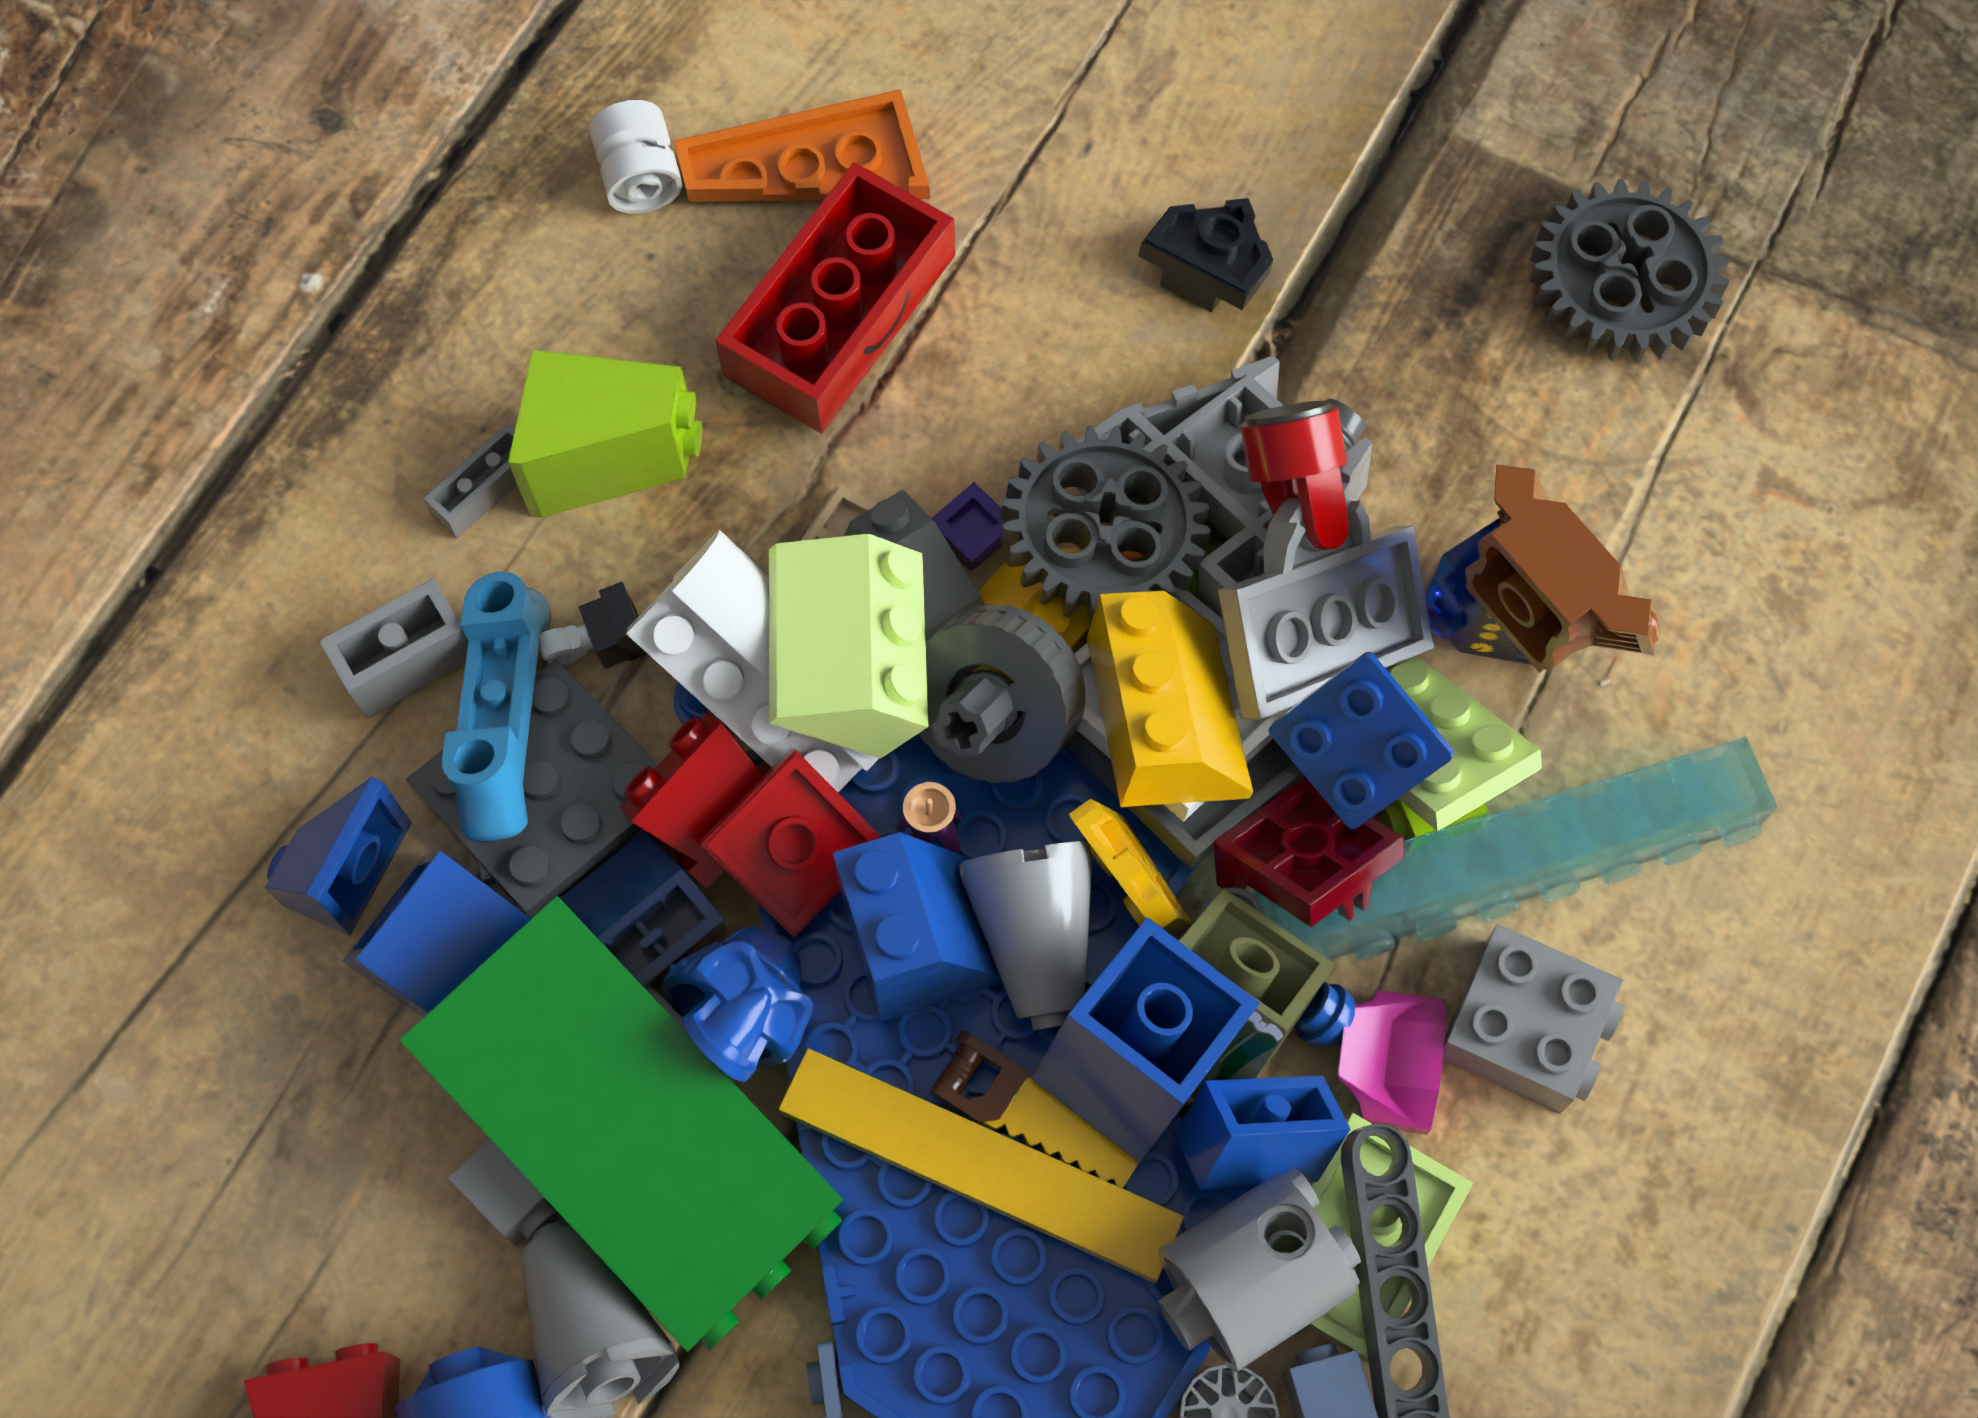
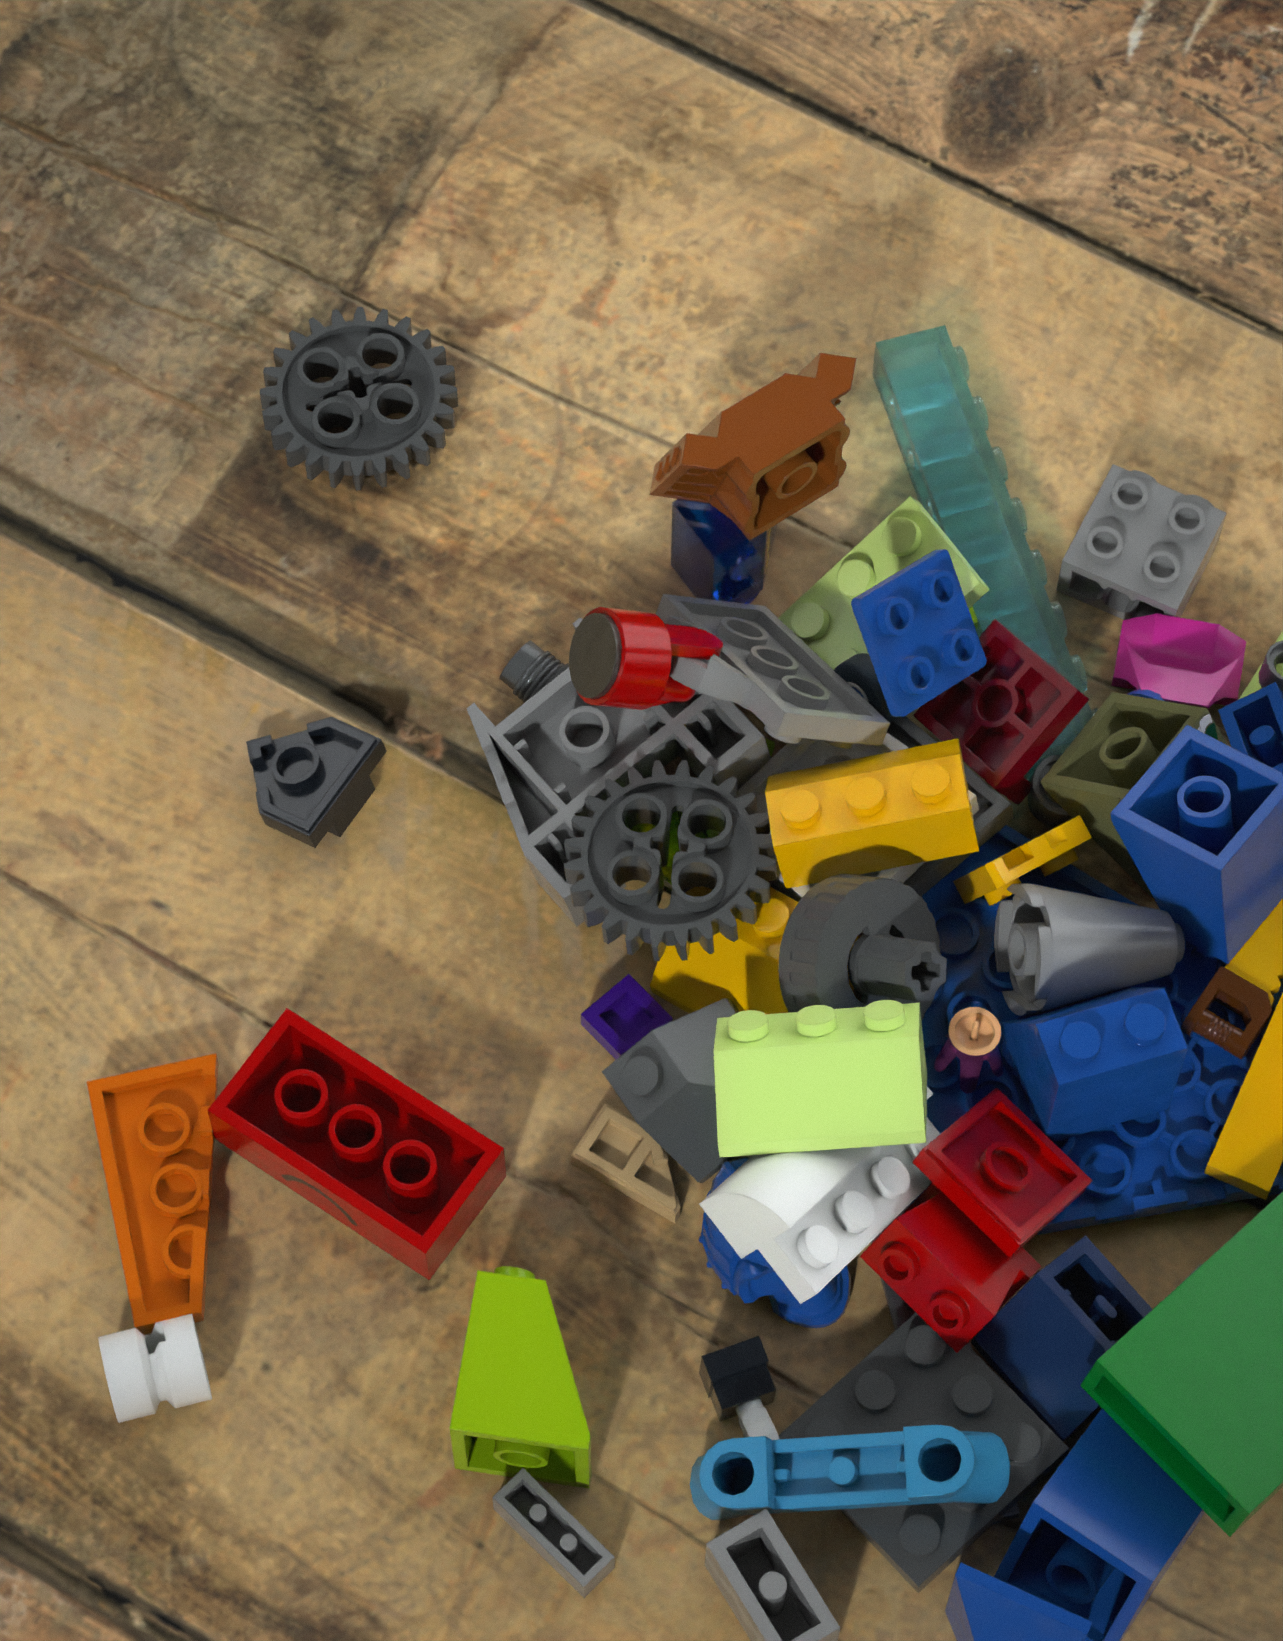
camera: 90 degrees left, 5 degrees down
(741, 1000) = (1168, 1210): blue head -> none

